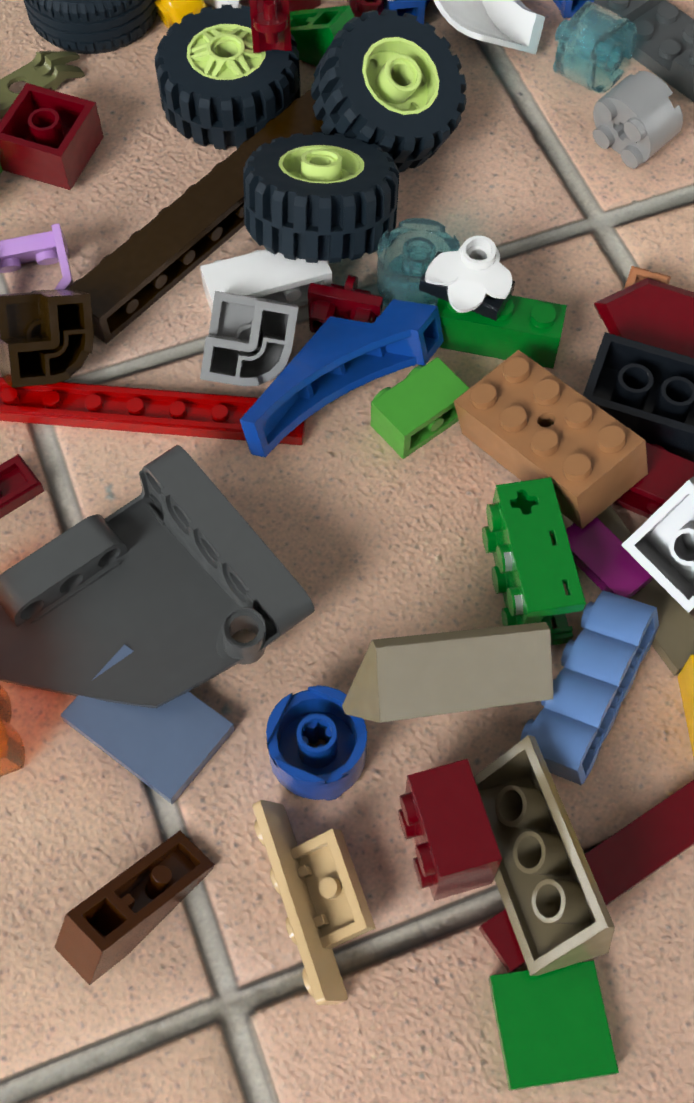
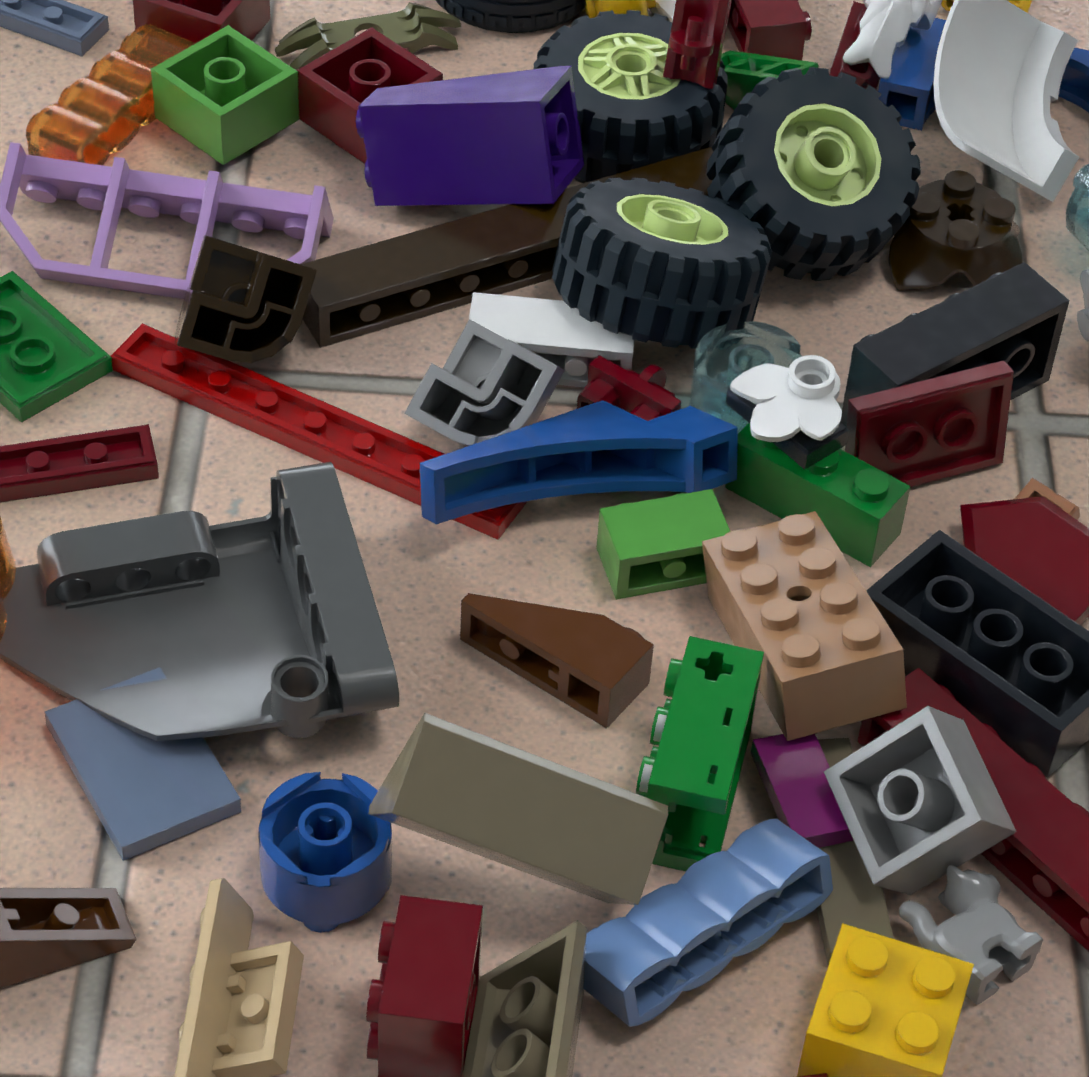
camera: 20 degrees right, 15 degrees down
(142, 147) = (473, 139): none -> dark purple slope
(399, 518) = (563, 651): none -> reddish brown slope
(496, 101) = (955, 230): none -> dark brown brick
(545, 195) = (1003, 319): none -> black brick
(558, 251) = (934, 425): none -> dark red tile

